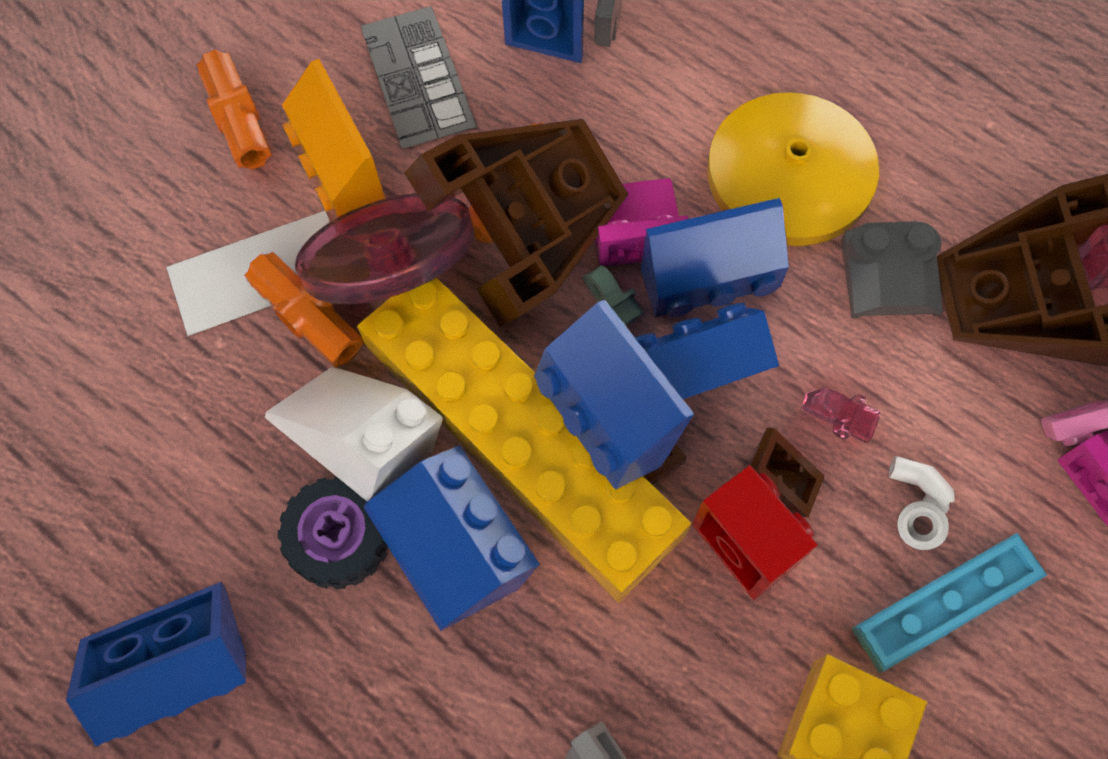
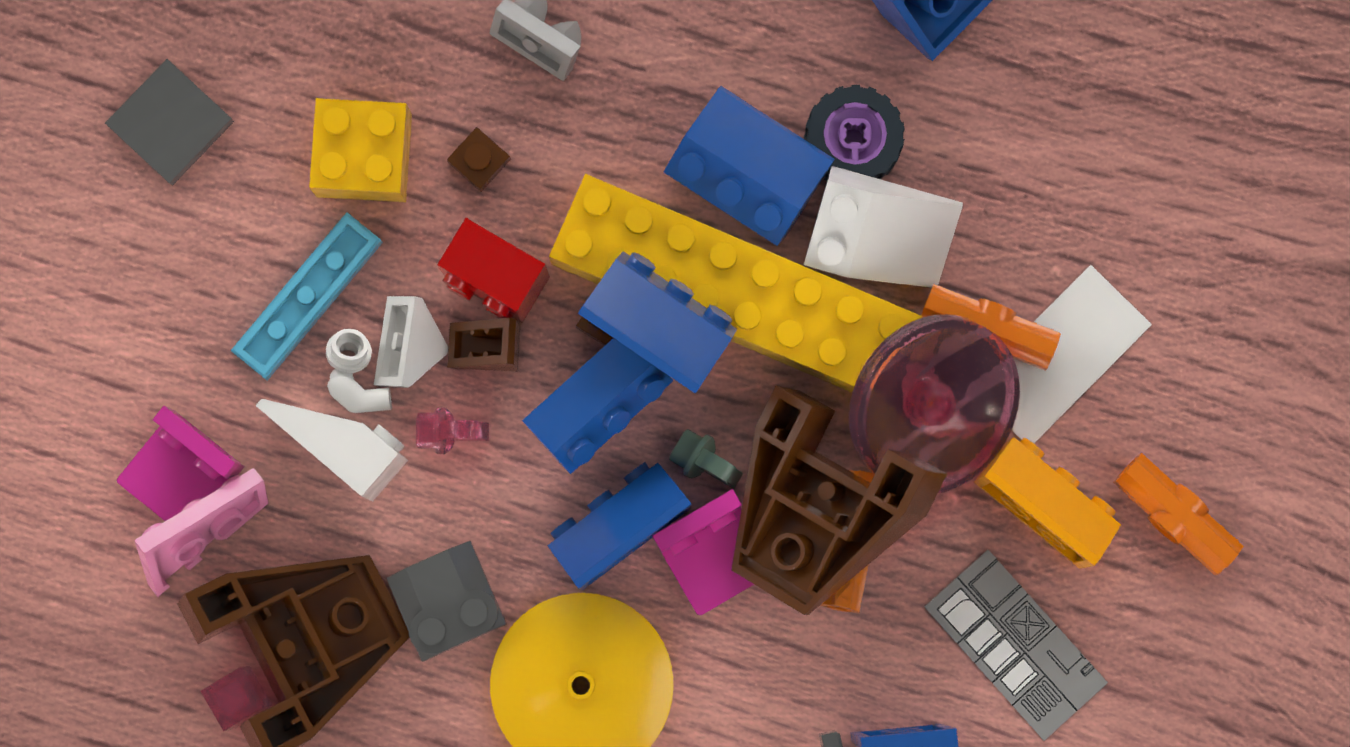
camera: 155 degrees right, 15 degrees up
(722, 671) = (478, 159): none -> reddish brown plate
(860, 509) = (408, 342): none -> white slope
(969, 430) = (349, 448): none -> white slope

